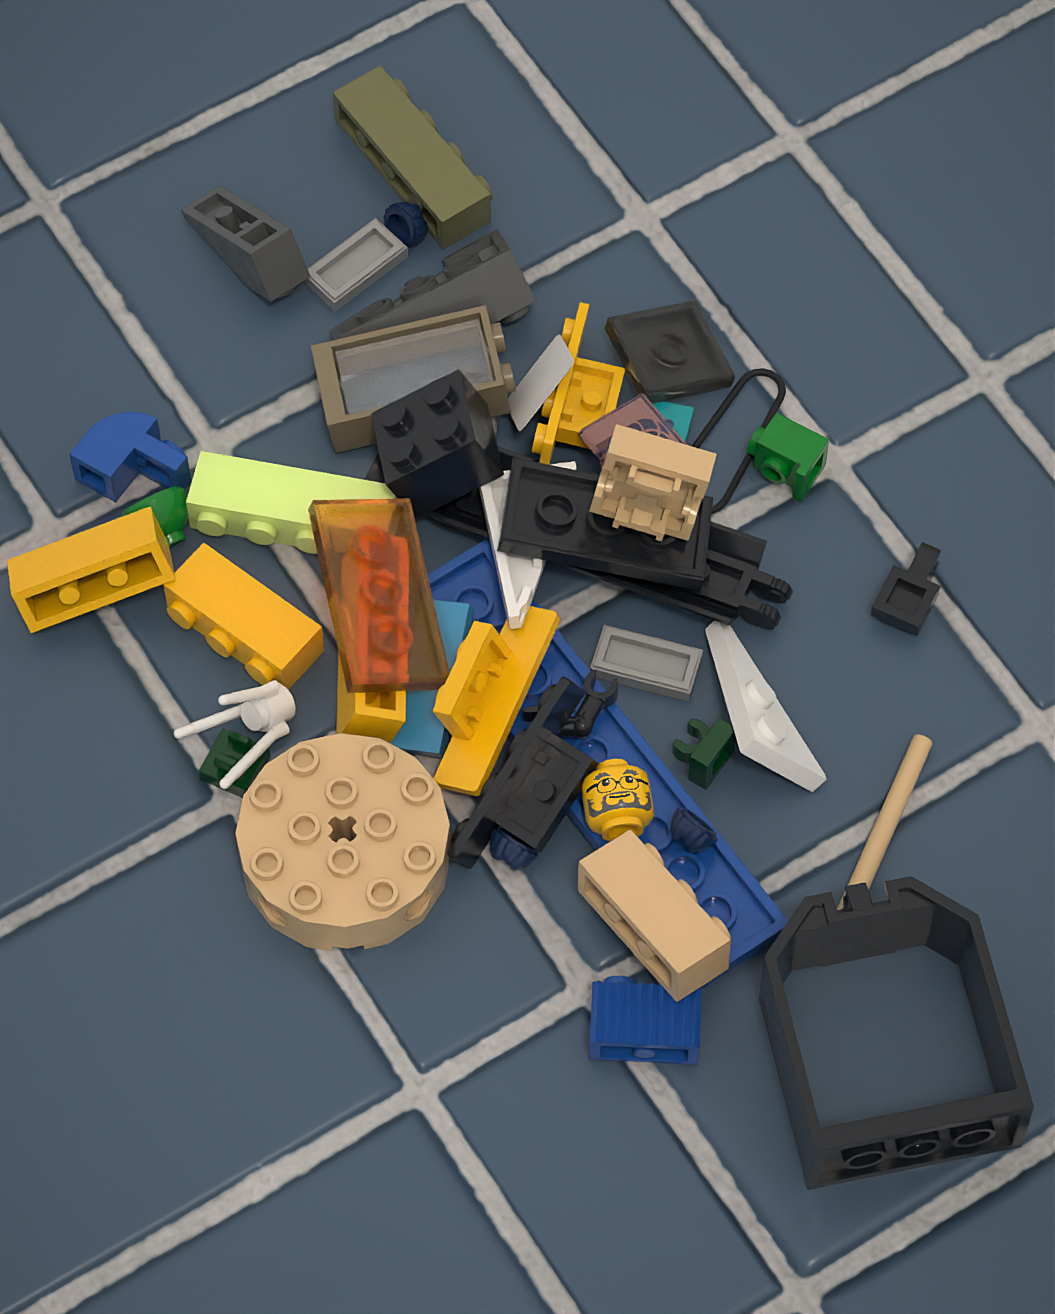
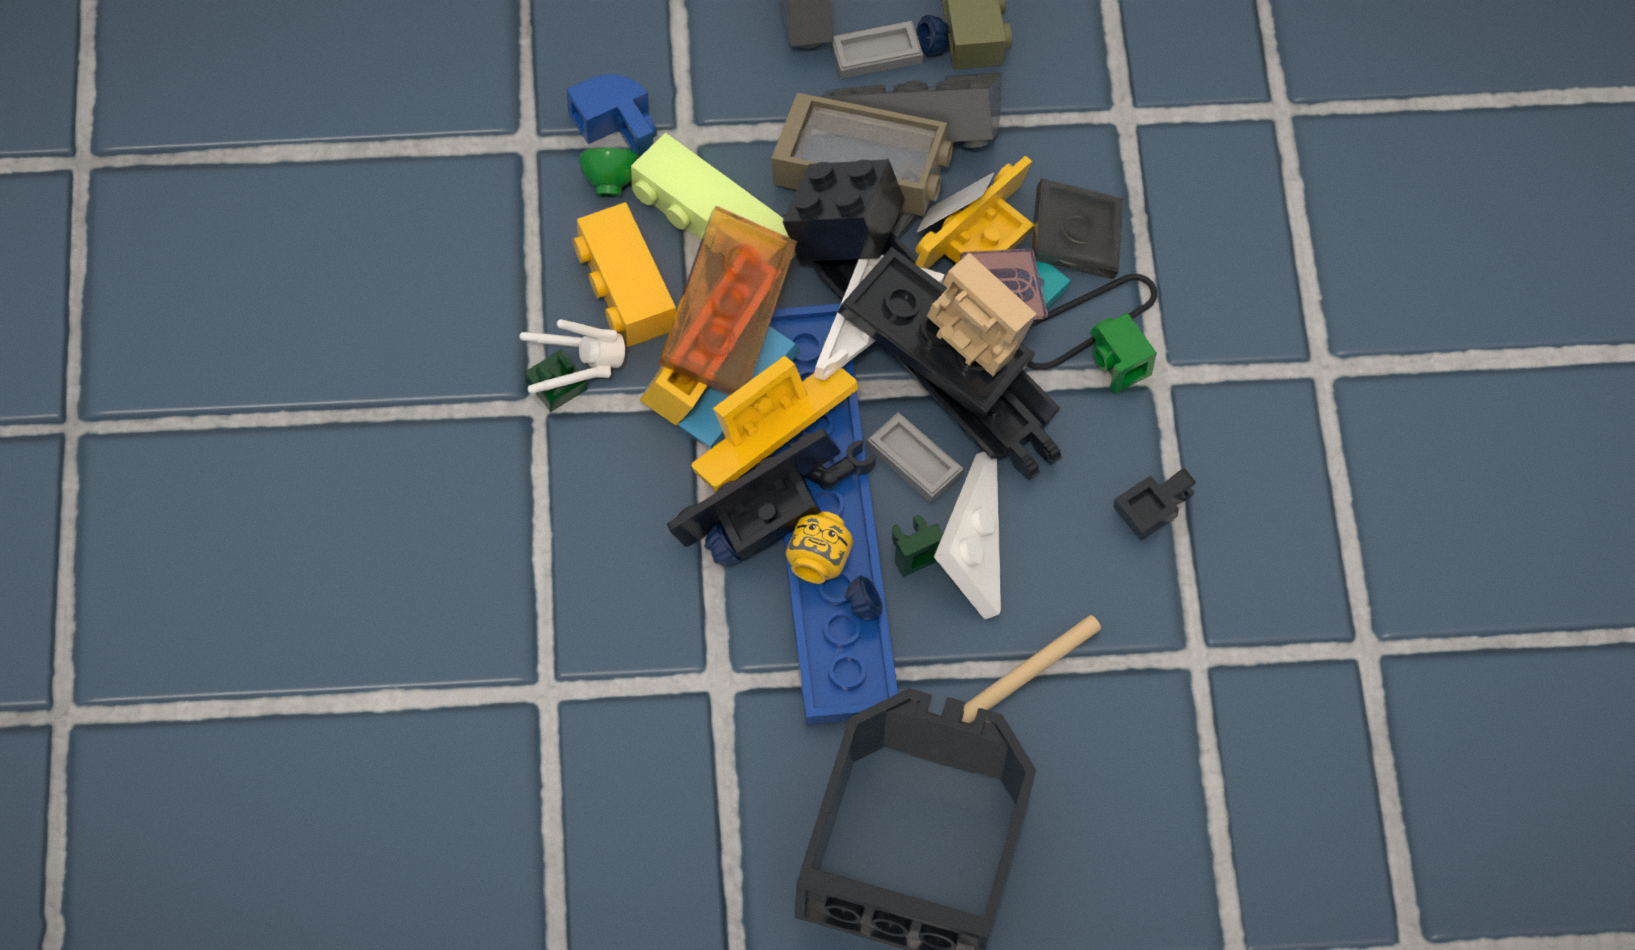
camera: 25 degrees right, 0 degrees up
(90, 569) = (530, 182): yellow brick -> none
(344, 842) = (597, 477): tan brick -> none
(643, 1023) = (743, 725): blue brick -> none
(654, 914) = (792, 646): tan brick -> none

